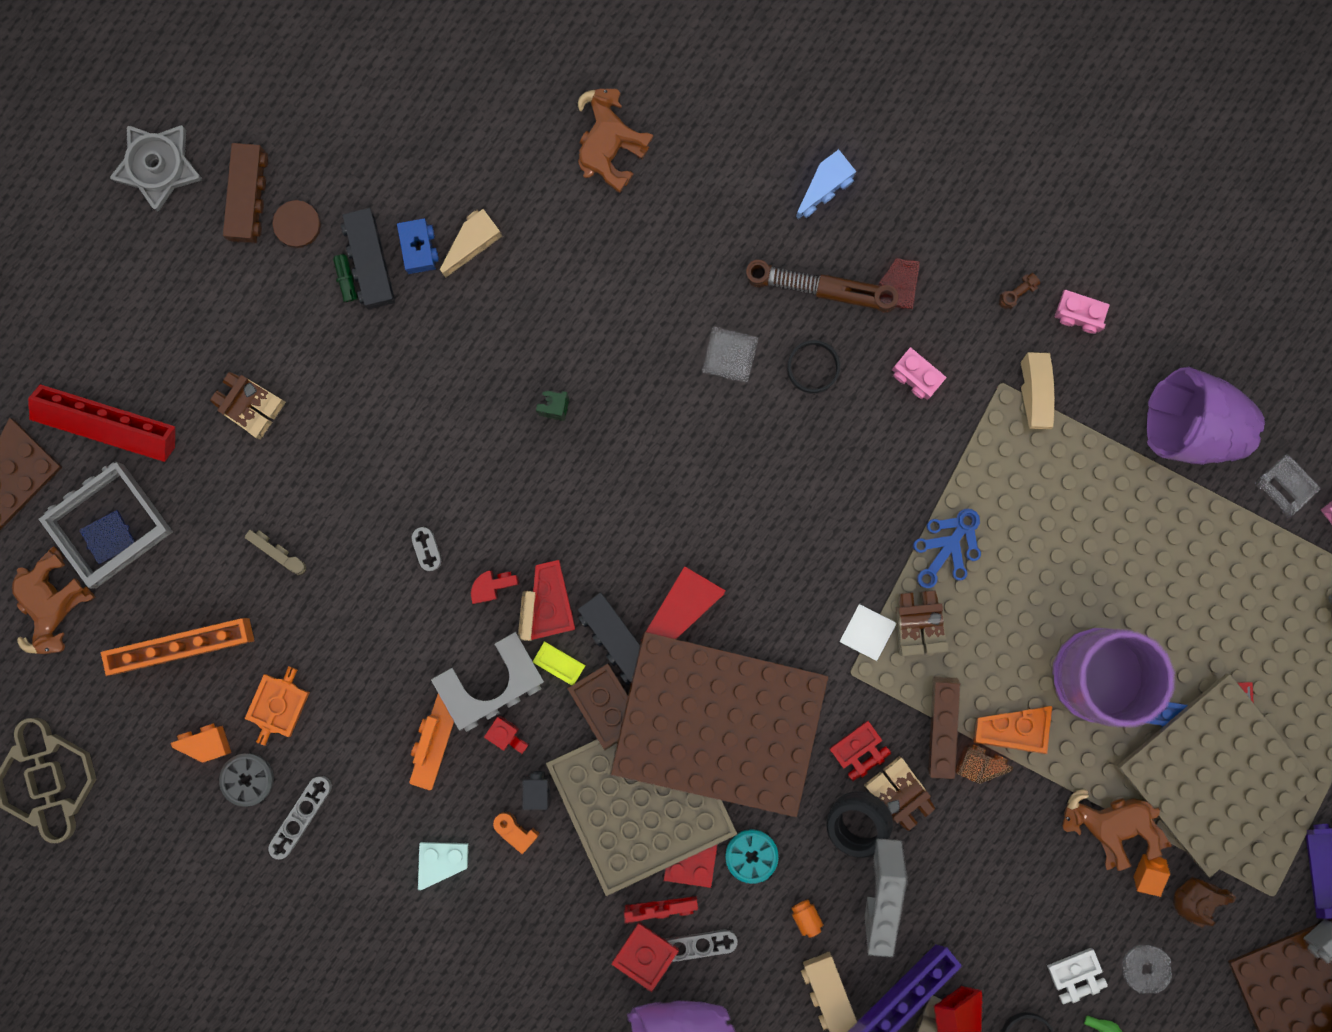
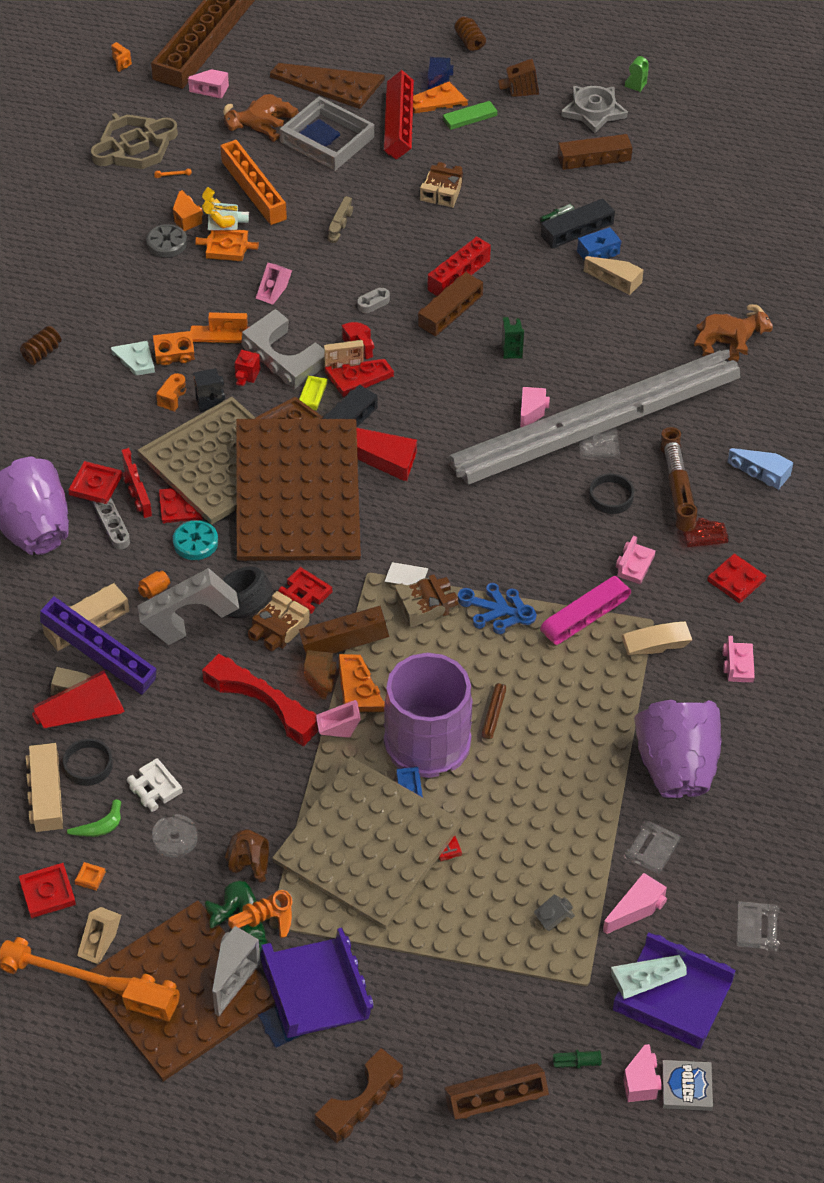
camera: 75 degrees right, 35 degrees down
(28, 344) = (439, 71): none -> clear blue slope
(74, 359) = (440, 96): none -> orange wing
(81, 244) = (521, 79): none -> reddish brown torso
(116, 88) = (639, 74): none -> bright green leg
(120, 328) = (469, 115): none -> bright green tile
(121, 723) = (158, 174): none -> orange hinge
(228, 701) = (222, 215): none -> torso
(296, 224) = (585, 184): reddish brown tile -> none
(301, 818) = (126, 269): light grey beam -> none
(365, 664) = (273, 283): none -> bright pink slope
(396, 978) = (40, 344): none -> reddish brown piece
(406, 429) = (467, 259): none -> red brick
(440, 815) = (173, 342): none -> orange brick
(468, 460) = (450, 304): none -> reddish brown brick
(658, 413) = (533, 405): none -> bright pink slope
(698, 346) = (593, 417): none -> piece
(959, 867) = (229, 677): none -> red arch
(969, 271) = (736, 578): none -> red plate
(982, 454) = (585, 610): none -> dark pink beam
(1009, 298) = (725, 608): reddish brown bar -> none
(1063, 766) = (339, 720): none -> bright pink slope
(1084, 594) = (493, 711): none -> reddish brown axle
(1116, 824) = (299, 775): dark orange animal -> none
(1151, 875) = (261, 814): orange brick -> none
(1272, 917) = (235, 896): none -> dark green piece
(1273, 889) = (265, 909): none -> orange piece

